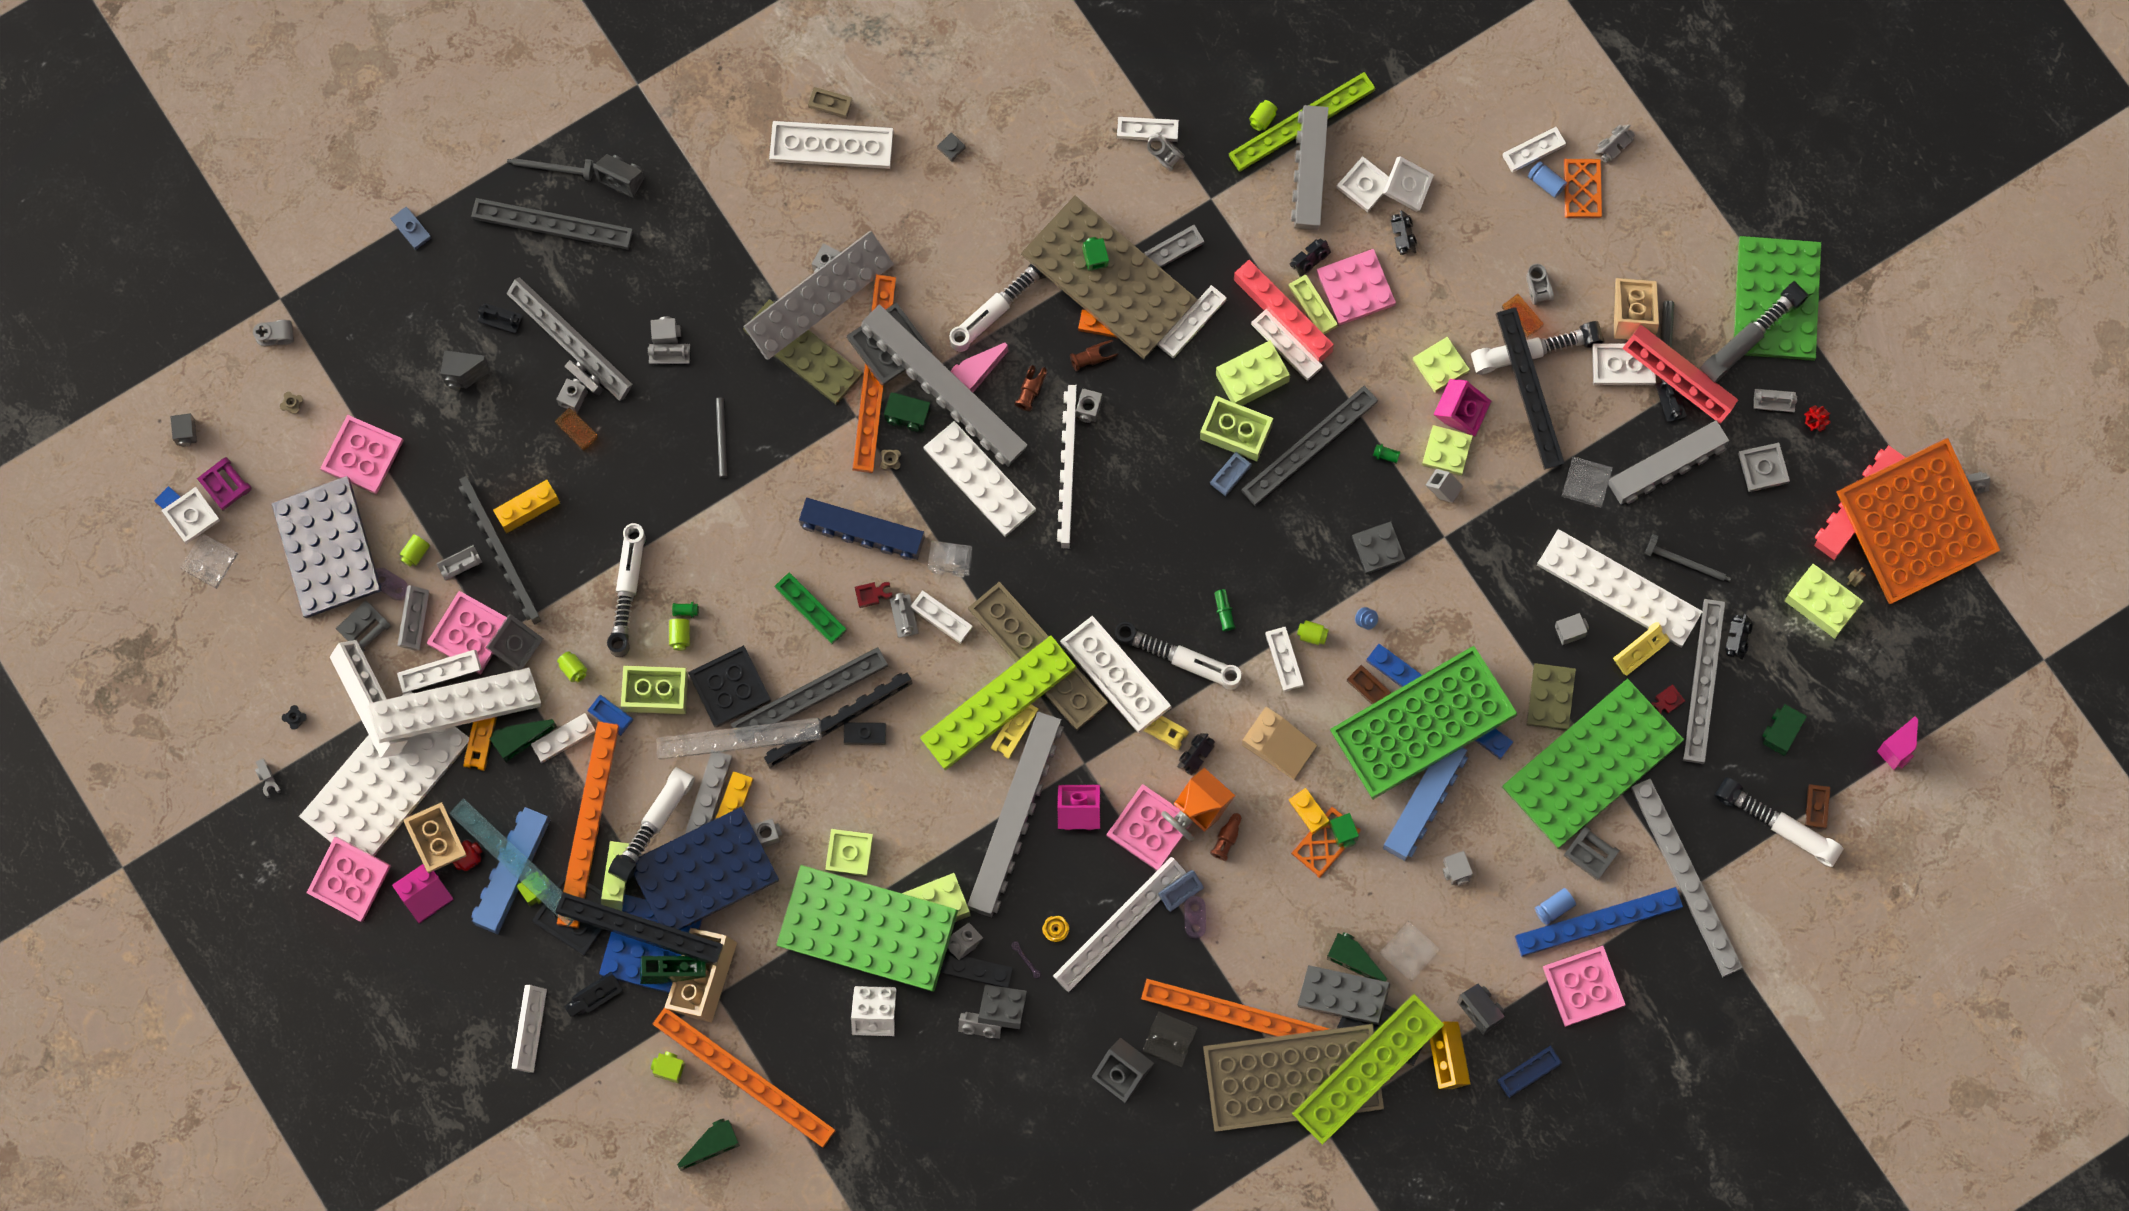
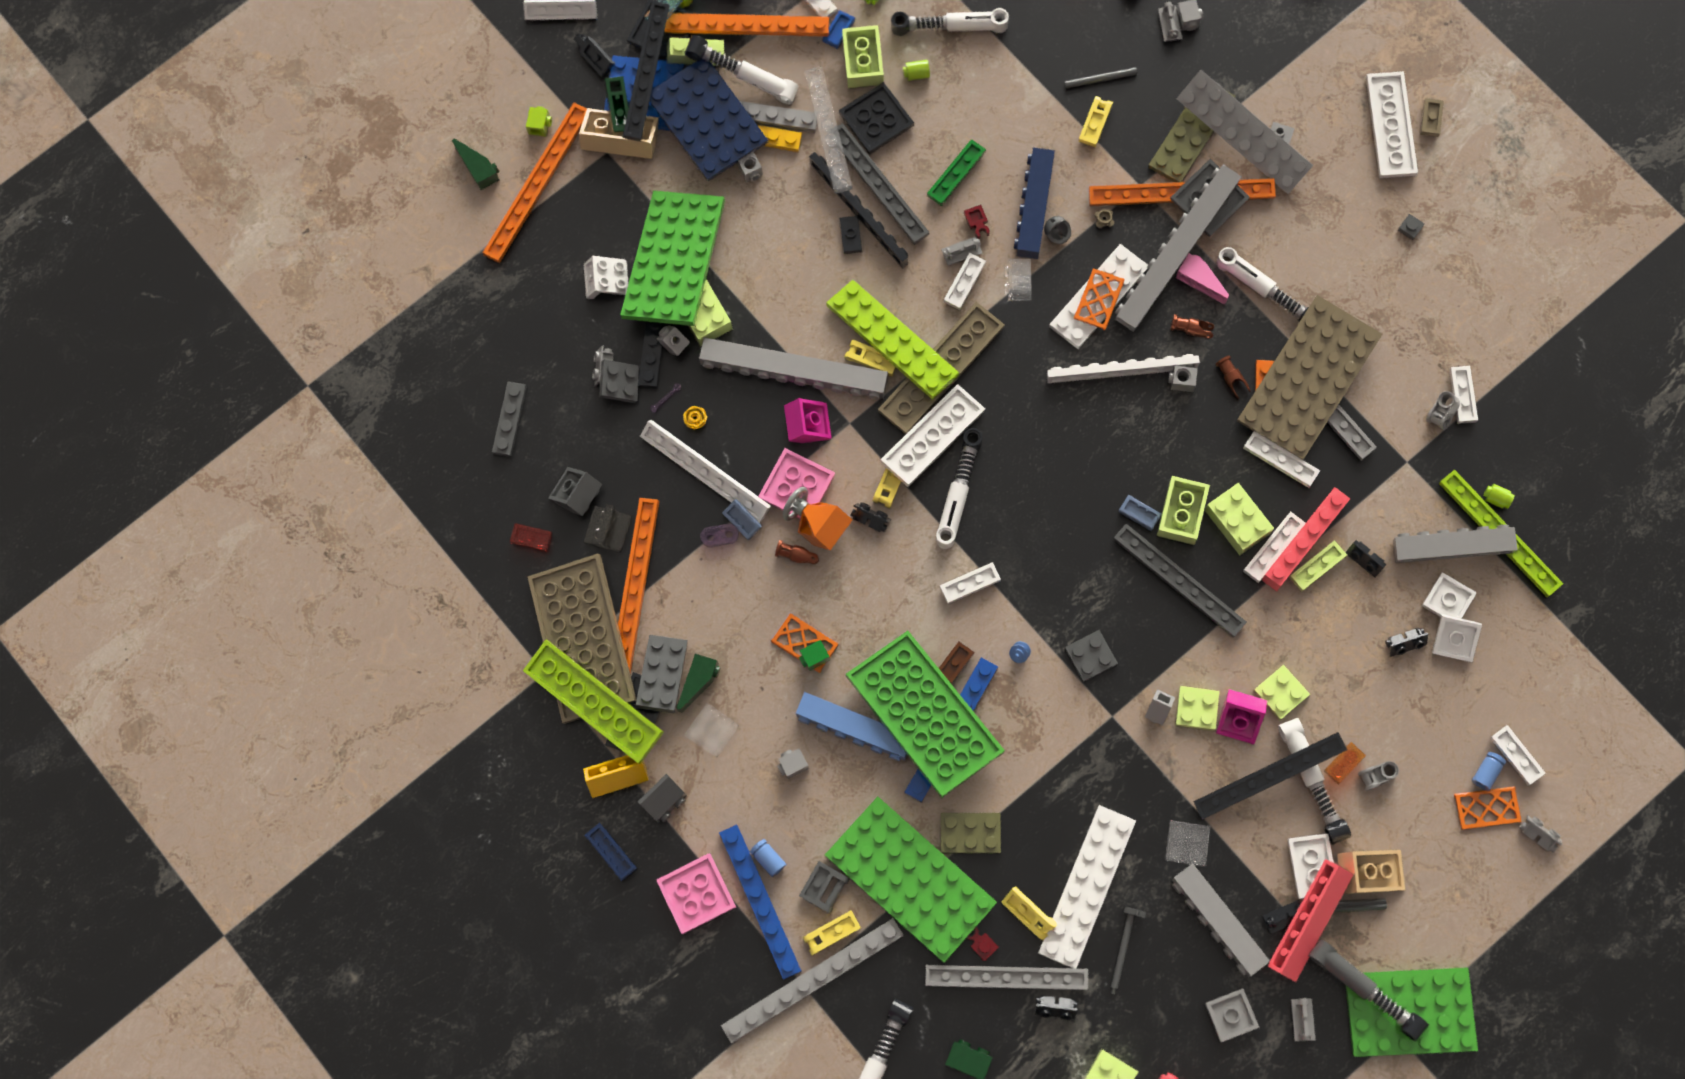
camera: 85 degrees right, 0 degrees up
(685, 609) = (940, 74): green pin -> none
(774, 450) = (1095, 122): none -> light yellow plate
(849, 852) = (742, 236): yellowish green plate -> none
(894, 509) = (1056, 229): none -> dark grey piece
(907, 412) = (1150, 225): dark green brick -> none
(970, 483) = (1108, 311): none -> orange window
(1026, 1136) = (509, 419): none -> dark grey plate
(1095, 253) = (1327, 357): green brick -> none
(1169, 1124) = (531, 537): none -> clear red plate
(1224, 610) = (1009, 524): green axle -> none
(1279, 743) = (890, 588): tan slope -> none
(1309, 811) = (830, 623): yellow plate -> none
(1312, 633) = (998, 605): lime brick -> none
(1356, 287) = (1344, 604): bright pink plate -> none
(1386, 453) = (1183, 651): green pin -> none
(1571, 628) = (1038, 844): light grey brick -> none
(1639, 850) = (832, 932): none -> light yellow plate
(1817, 418) = (1291, 1063): red gear -> none

